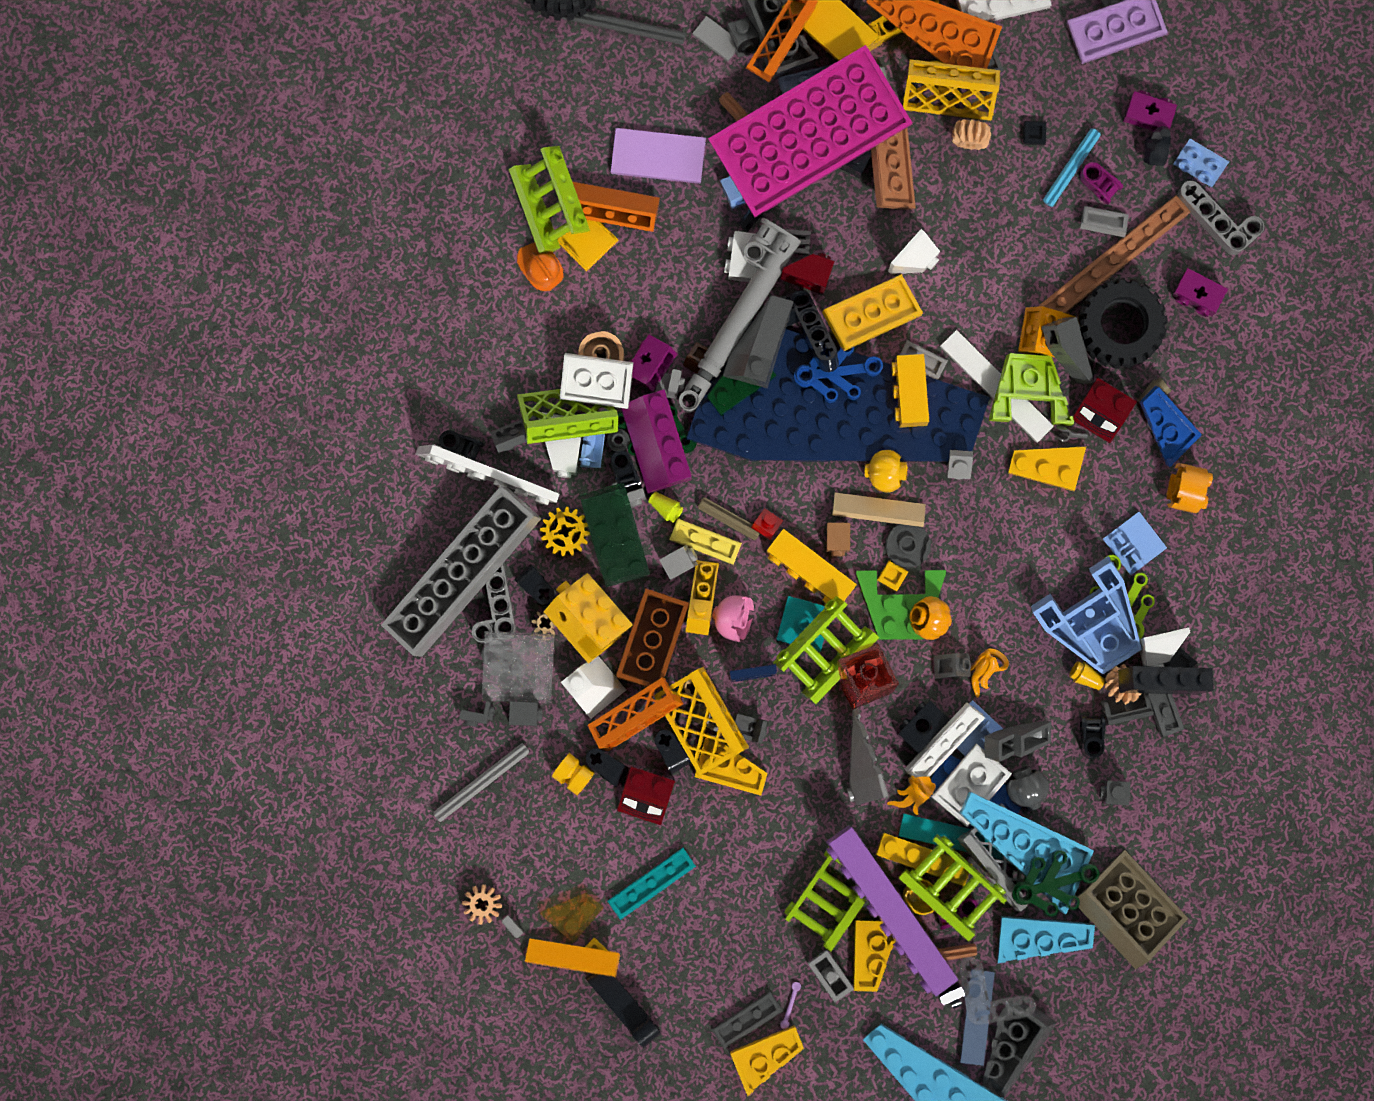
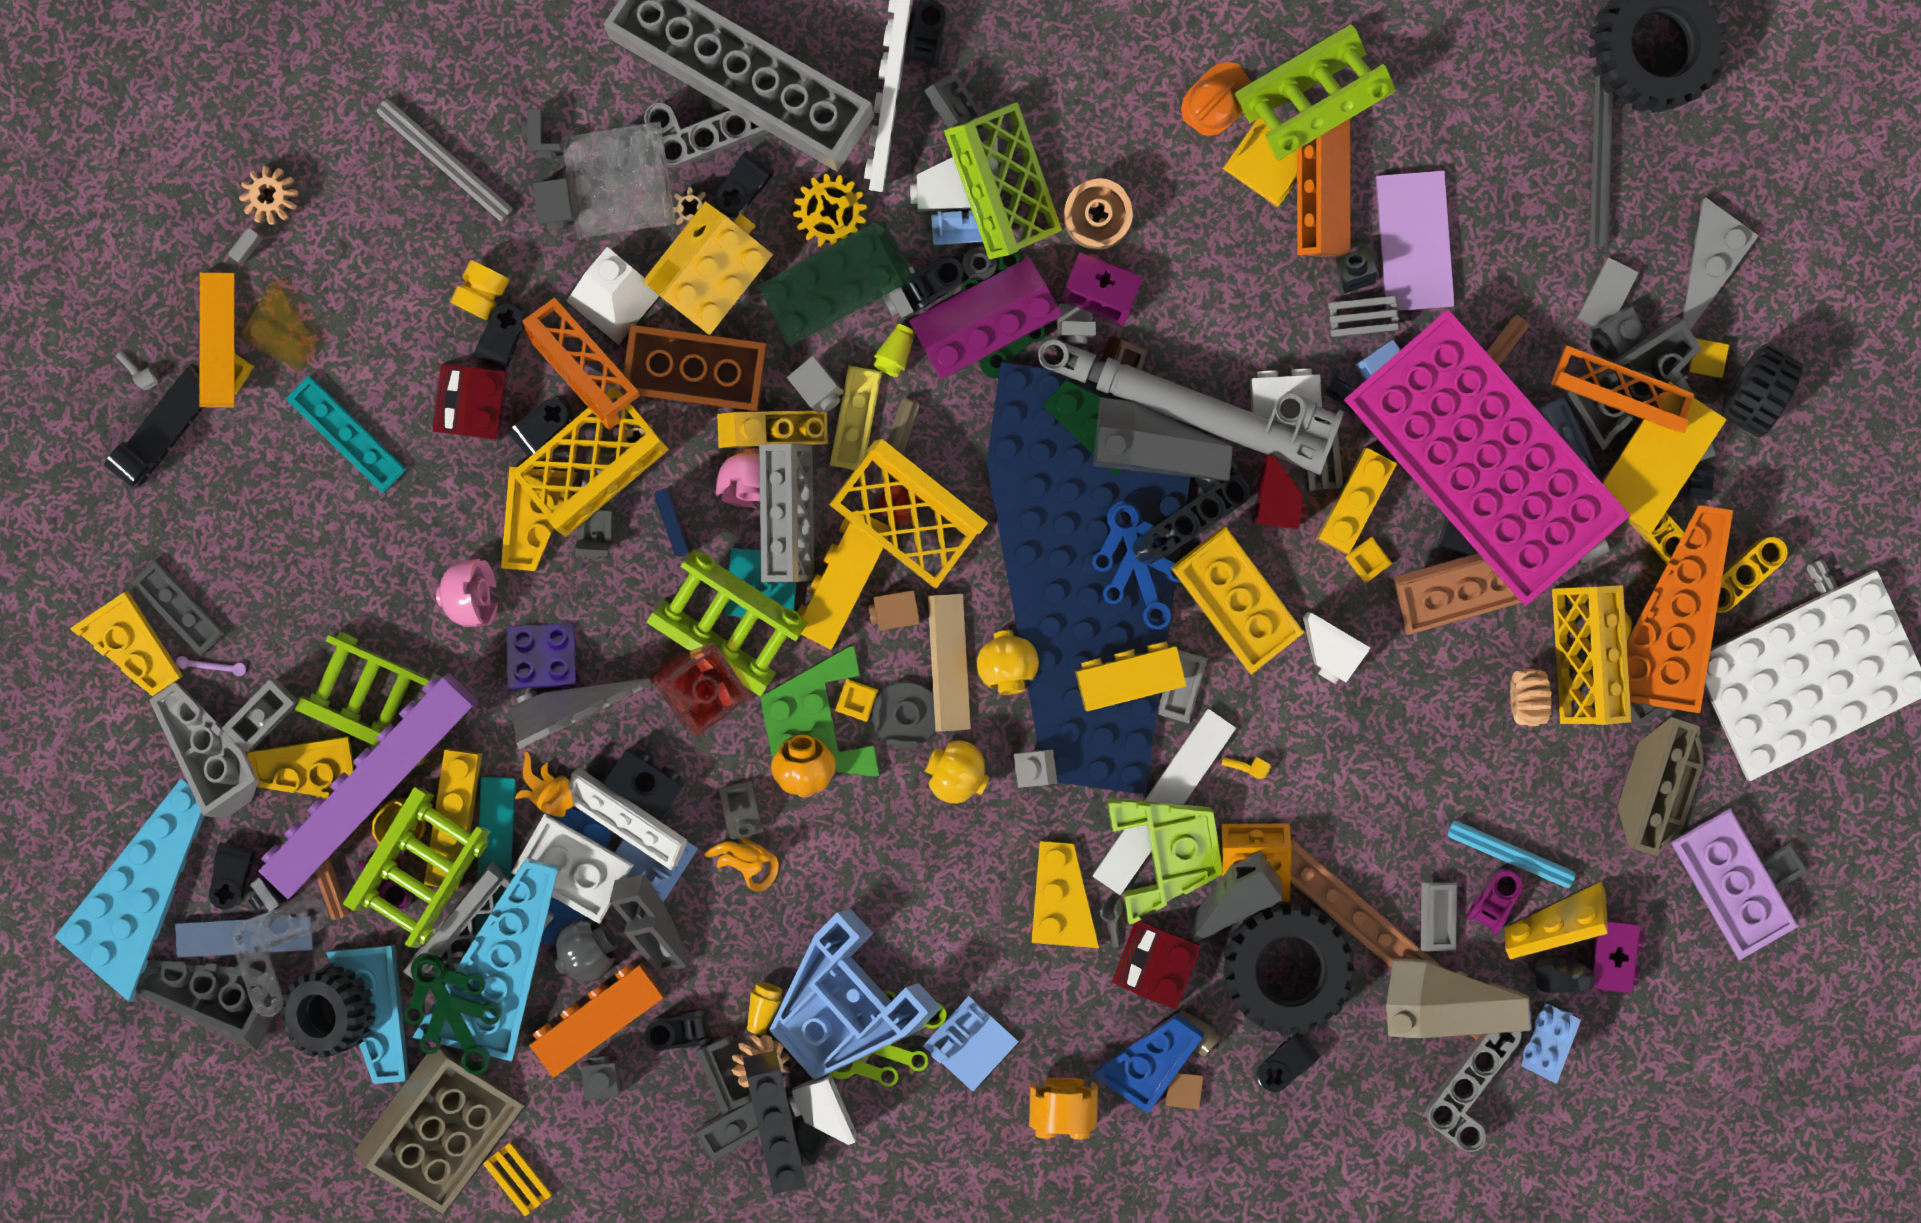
camera: 80 degrees right, 5 degrees up
(589, 1013) = (144, 379): none -> light grey hand
(596, 380) = (1057, 213): white tile -> none
(670, 195) = (1356, 270): none -> black bracket
(699, 216) = (1335, 319): none -> light grey tile
(759, 504) = (924, 488): none -> yellow fence
(760, 596) = (785, 511): none -> light grey fence
(774, 821) = (466, 593): none -> bright pink cylinder
(821, 223) = (1356, 501): none -> yellow brick
(825, 780) = (541, 656): none -> dark purple hinge
(852, 1016) = (207, 755): none -> light grey wedge
(861, 224) = (1368, 560): none -> yellow tile
(931, 1016) = (231, 869): none -> black piece
(953, 517) = (956, 772): none -> yellow plant
(986, 320) = (1258, 769): none -> yellow hand
(1034, 133) = (1553, 790): black tile -> none
(1043, 984) = (306, 1019): none -> black tyre
(1044, 62) = (1661, 785): none -> dark tan wedge
(1076, 789) = (596, 1020): none -> orange brick
(1123, 142) = (1560, 924): none -> yellow wing
(1163, 226) = (1443, 1003): none -> dark tan wedge
(1181, 334) = (1292, 1059): none -> black piece
(1190, 854) = (502, 1181): none -> yellow tile
(1191, 407) = (1185, 1091): none -> medium nougat tile
(1211, 294) = (1371, 1061): magenta brick -> none

